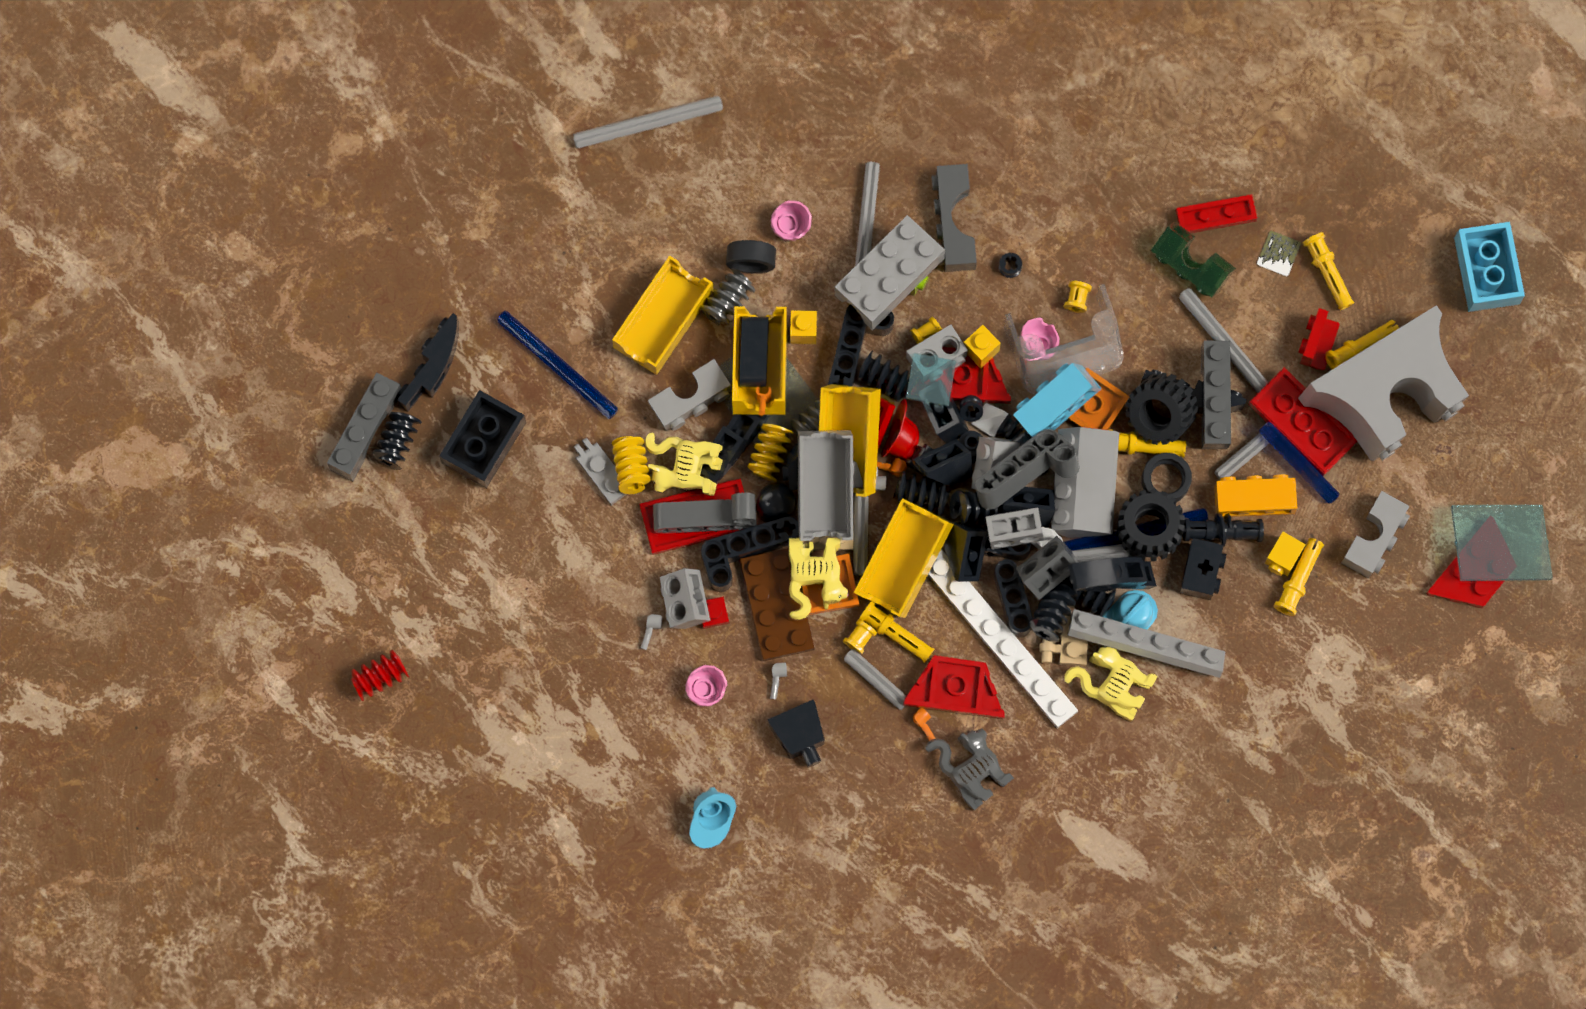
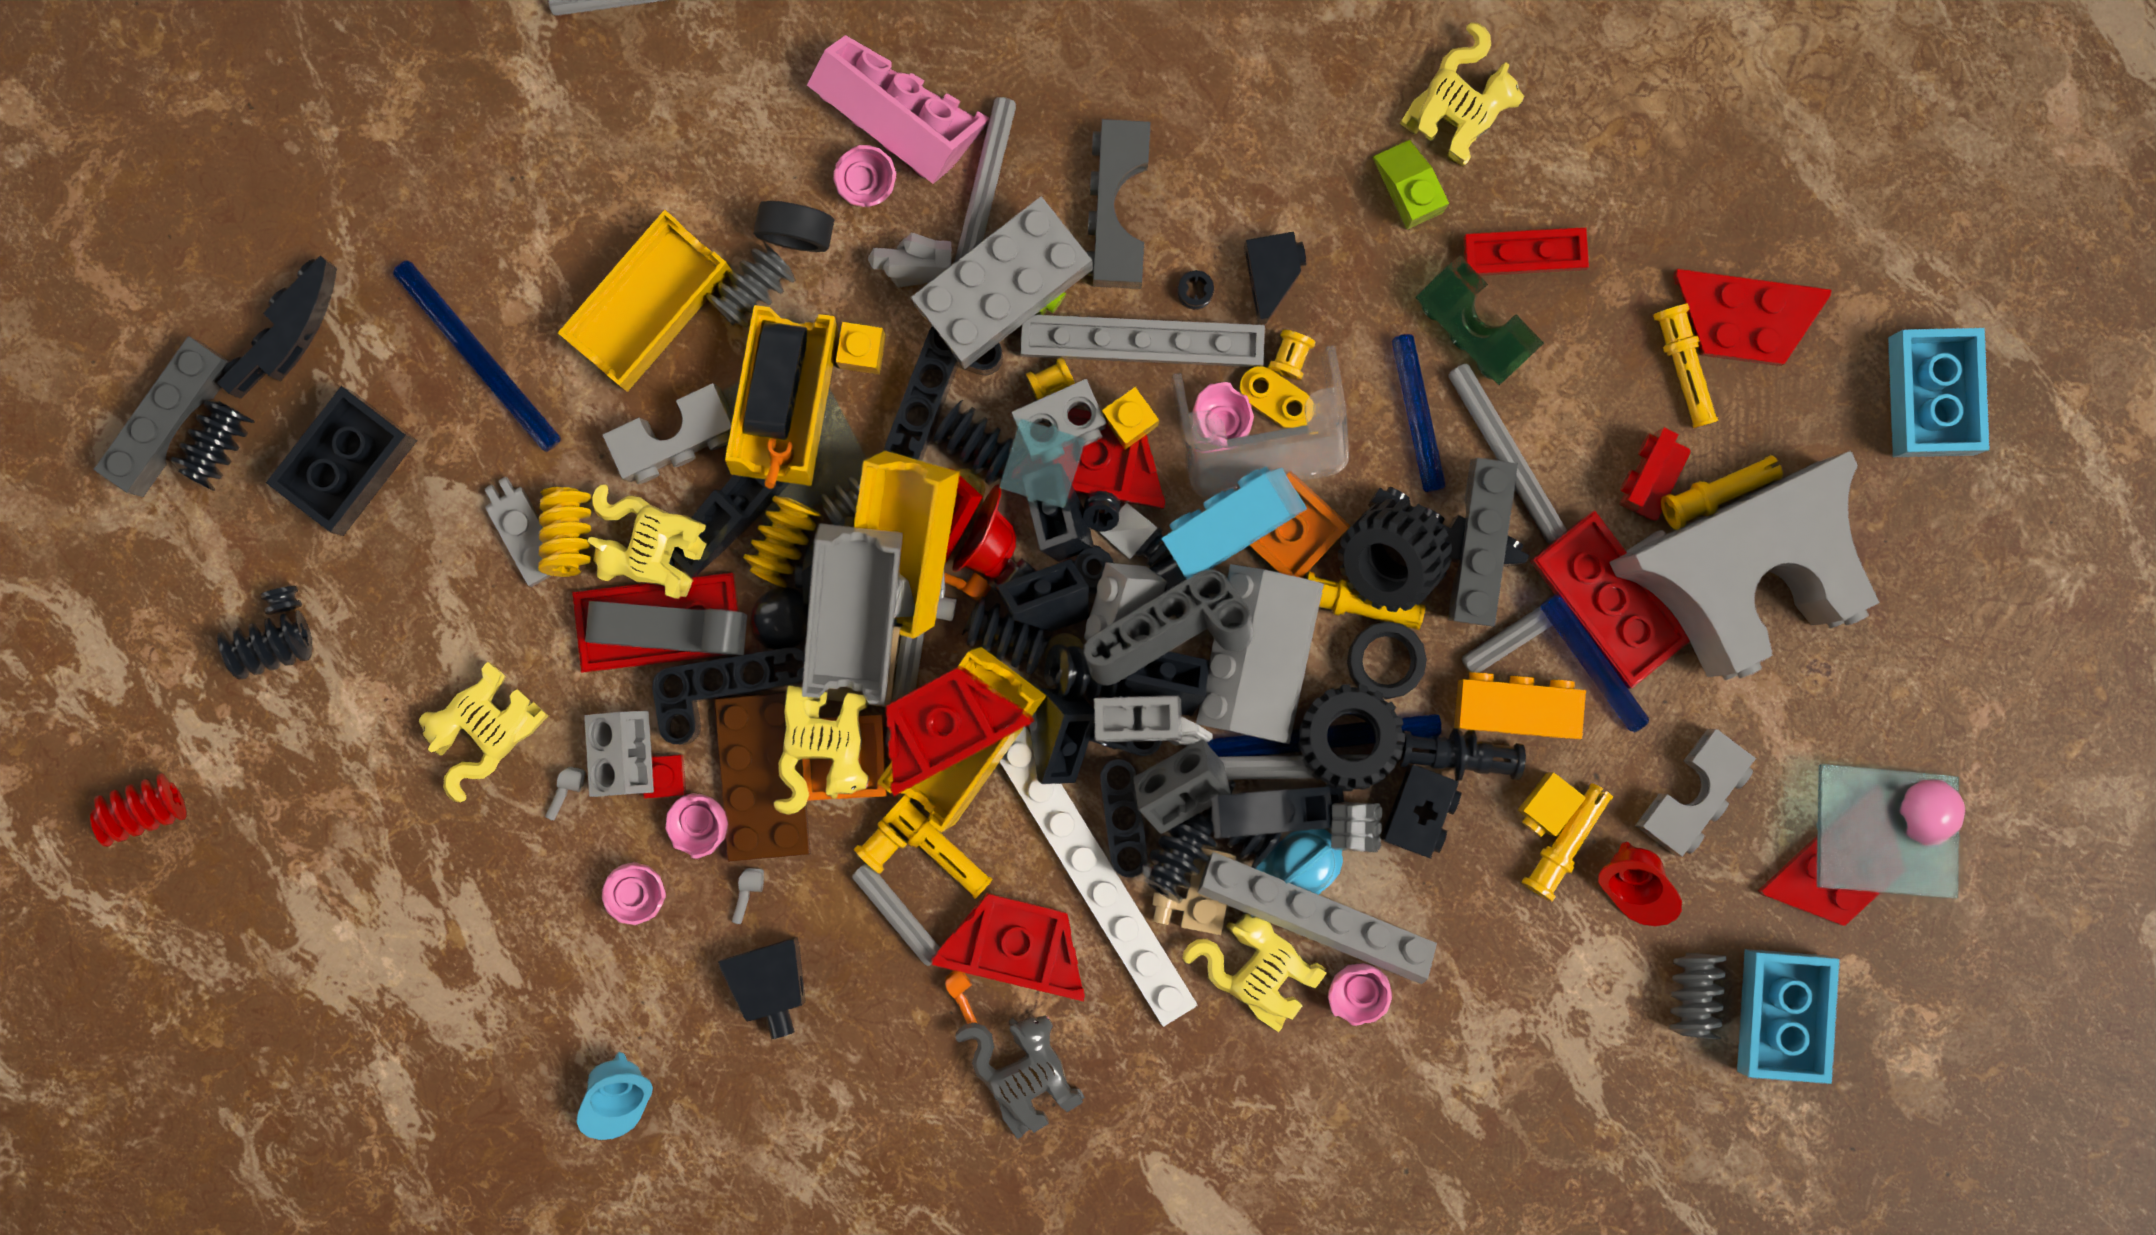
camera: 10 degrees right, 10 degrees up
(447, 561) = (267, 647): none -> black piece
(453, 532) = (281, 600): none -> black bush
(599, 594) = (489, 727): none -> light yellow animal
(740, 637) = (696, 825): none -> bright pink hair
(804, 177) = (895, 108): none -> bright pink wedge
(829, 268) = (914, 261): none -> light grey rock
(894, 545) = (946, 724): none -> red wing
(982, 300) = (1143, 340): none -> light grey plate
(1057, 245) = (1272, 270): none -> black slope
(1070, 327) = (1275, 400): none -> yellow plate
(1138, 182) = (1411, 184): none -> lime slope
(1161, 129) = (1460, 104): none -> light yellow animal
(1163, 323) = (1418, 413): none -> clear blue axle
(1163, 581) = (1356, 827): none -> dark grey hand
(1181, 688) = (1360, 994): none -> bright pink hair
(1278, 253) = (1613, 324): sticker -> none
(1349, 598) = (1640, 887): none -> red piece
(1363, 236) = (1748, 316): none -> red wing
(1395, 660) = (1698, 995): none -> dark grey piece
(1455, 664) = (1788, 1016): none -> medium azure brick
(1527, 526) = (1932, 812): none -> bright pink hair

